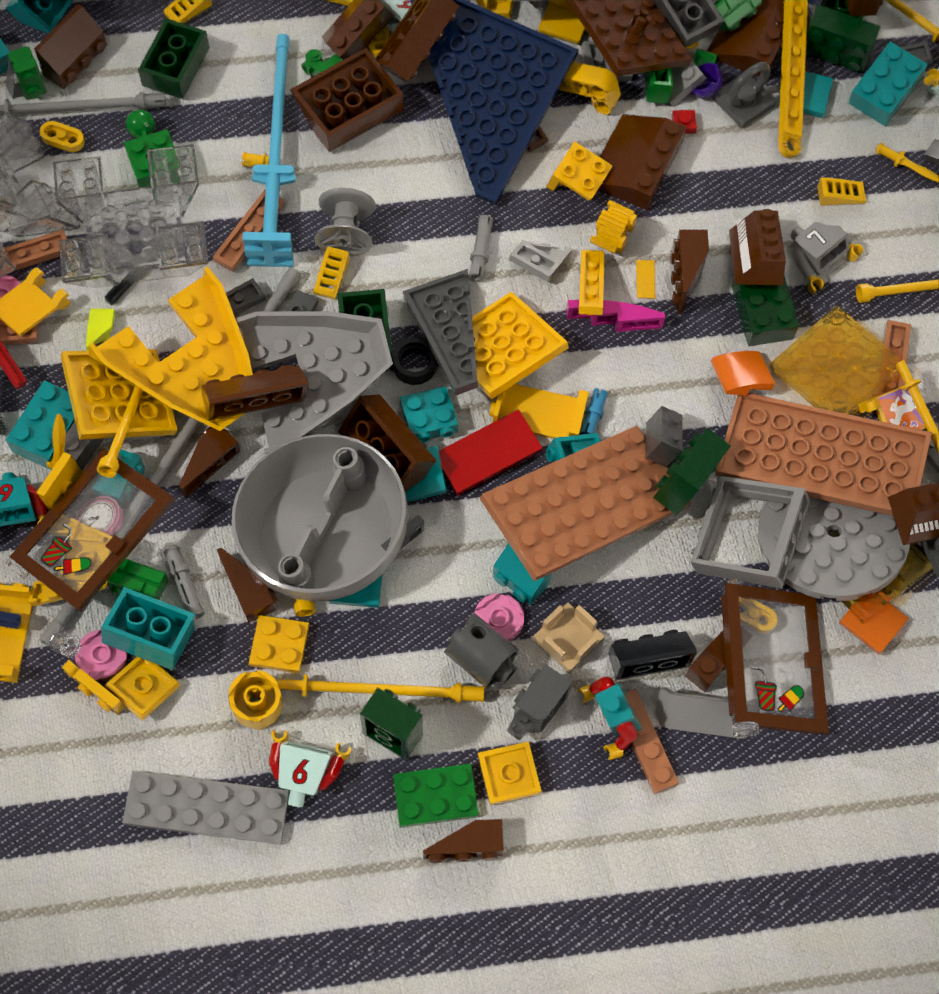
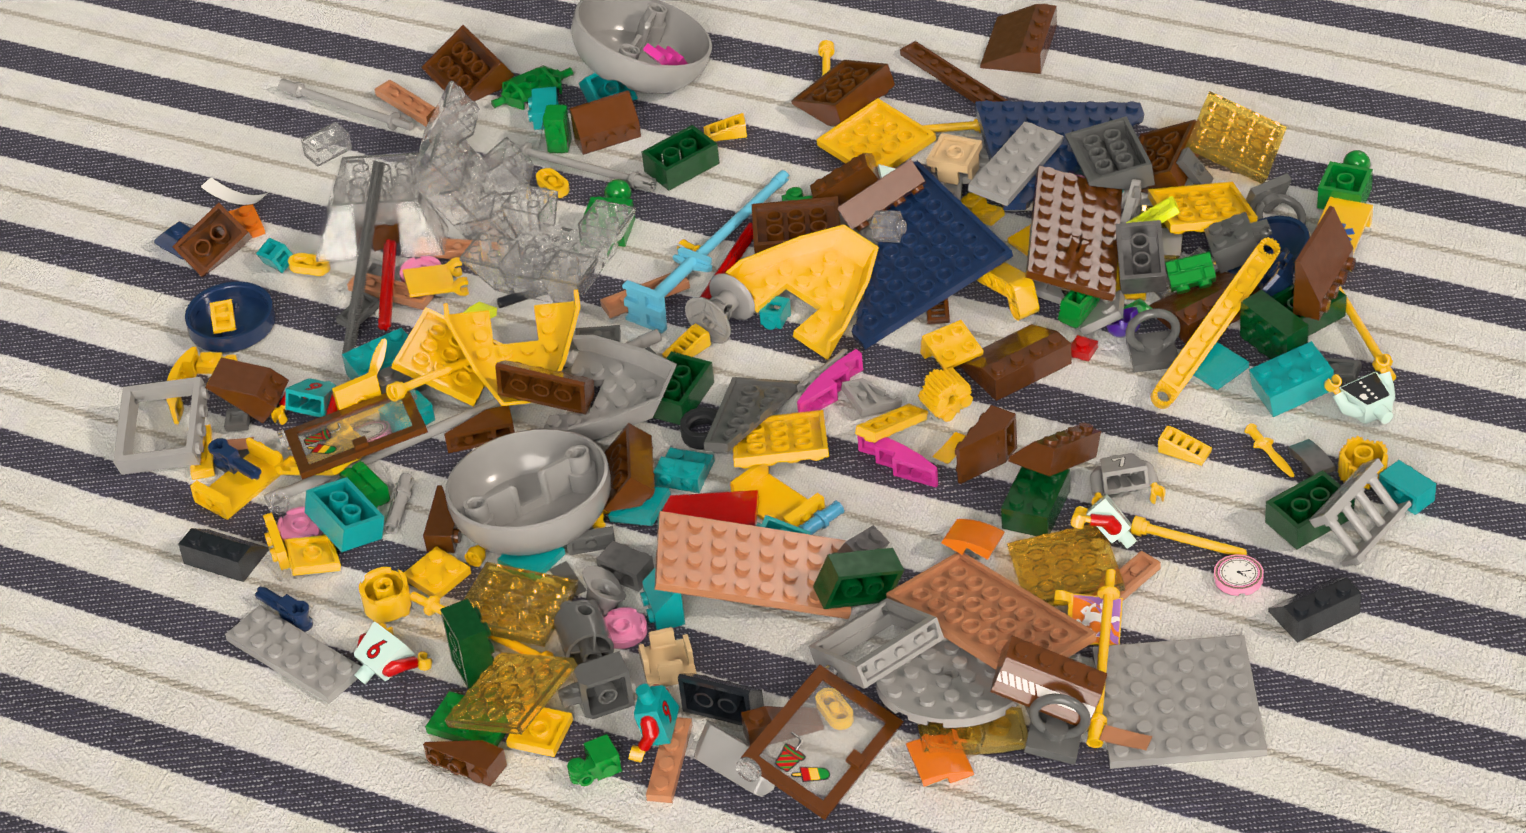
camera: 40 degrees right, 25 degrees down
(46, 727) = (221, 553): none -> black slope
(163, 761) = (289, 608): none -> dark blue connector
(303, 165) = (733, 256): none -> red axle
(389, 200) = (775, 318): none -> teal brick
(389, 646) = (520, 602): none -> clear yellow plate
(407, 588) = (565, 571): none -> dark grey sticker
(420, 139) = (820, 268): none -> yellow piece
(444, 65) = (888, 226): none -> clear brick
(457, 550) = (626, 564): none -> flat silver brick
(460, 589) = (603, 588): none -> light grey piece
(473, 759) = (511, 693): none -> clear yellow plate
(497, 263) = (826, 386): none -> dark pink slope
(591, 777) = (600, 762): none -> green brick
(843, 299) = (1108, 519): none -> torso

